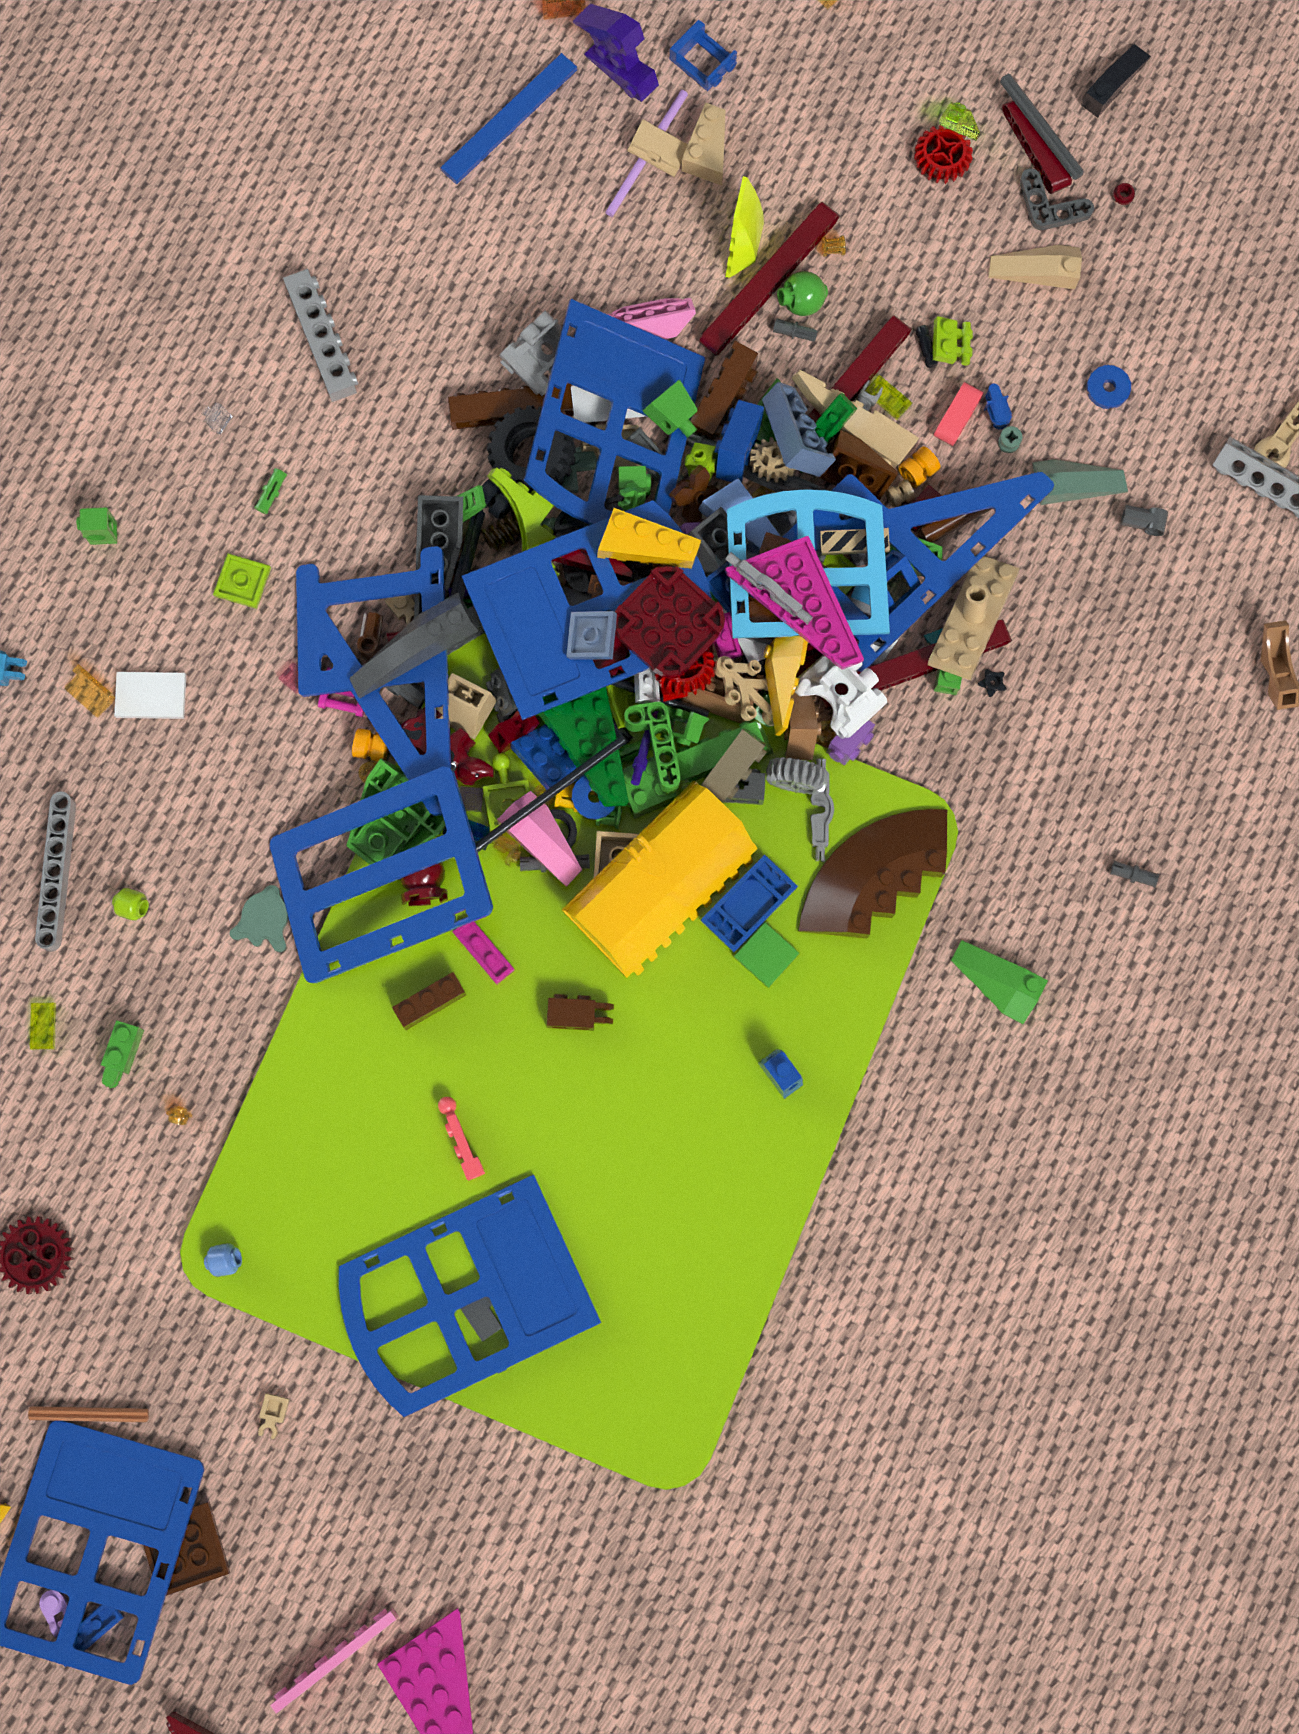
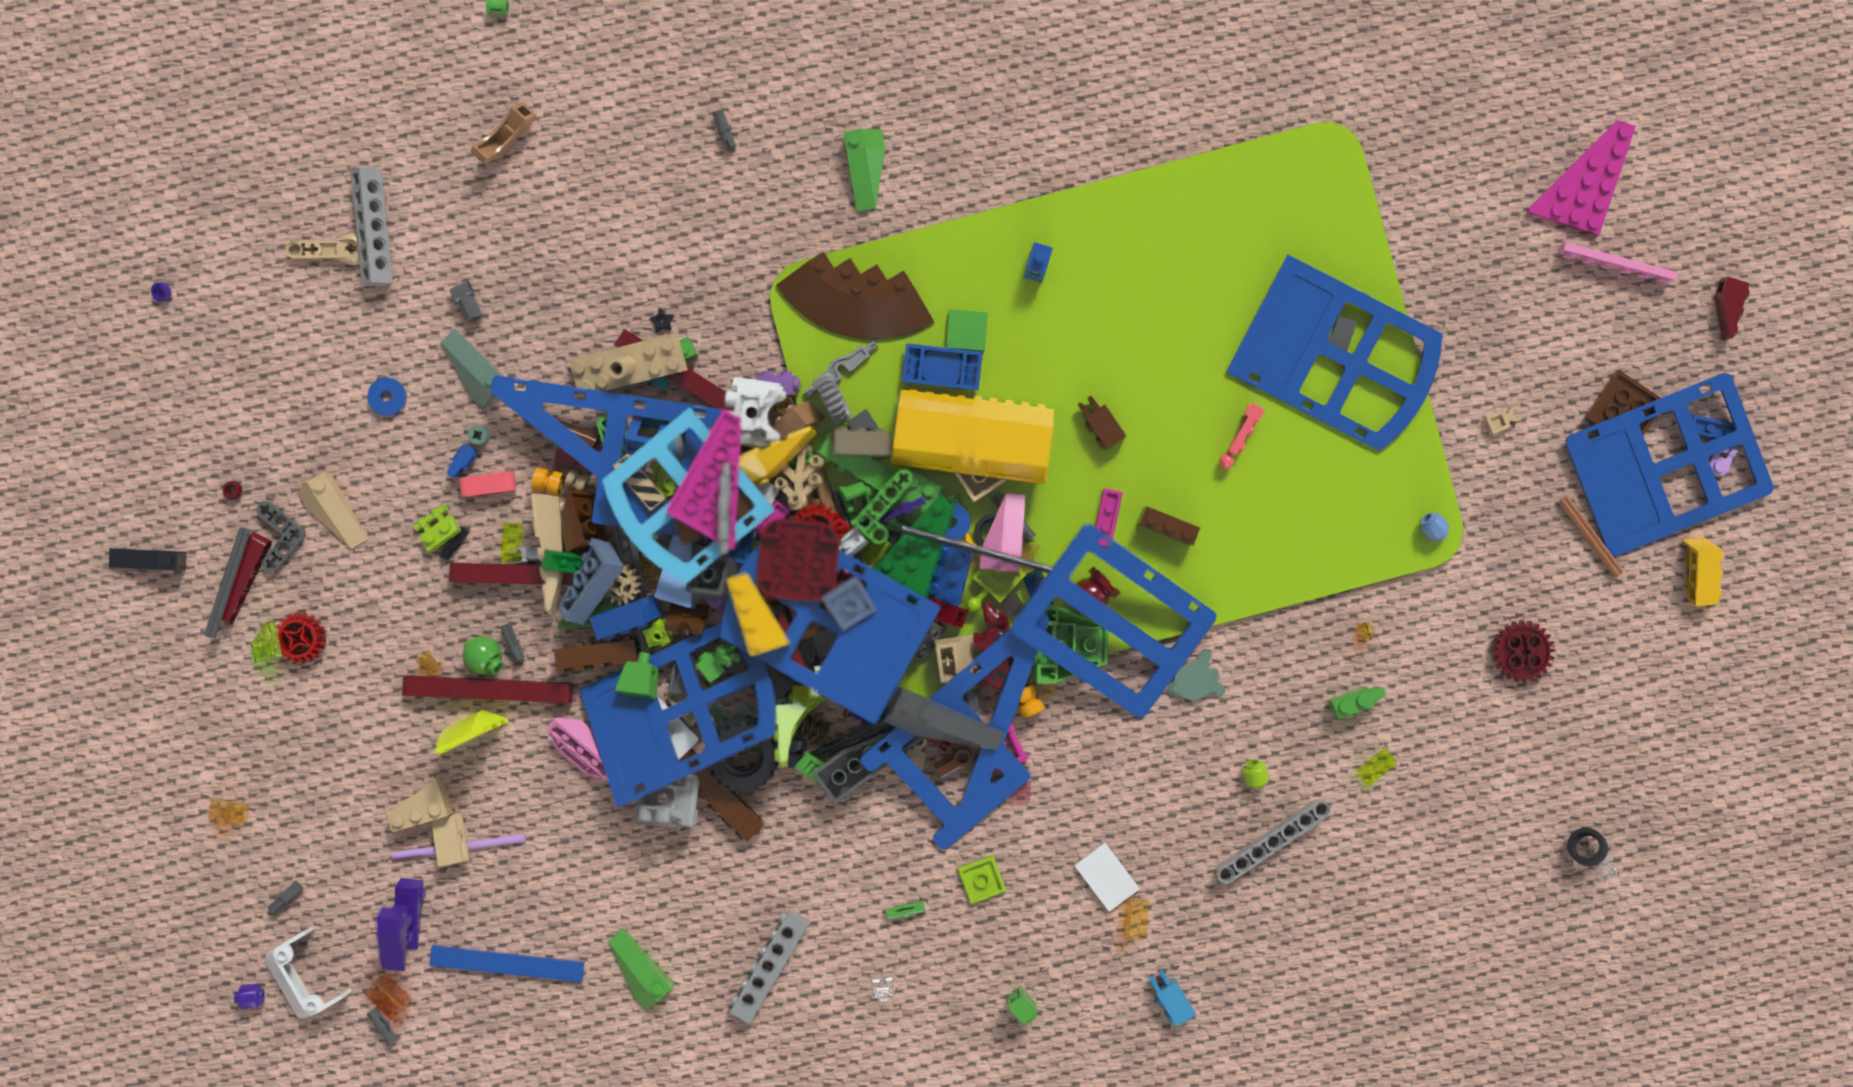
camera: 130 degrees left, 10 degrees up
(407, 224) = (642, 974): none -> bright green wedge
(695, 35) = (341, 879): blue panel -> none

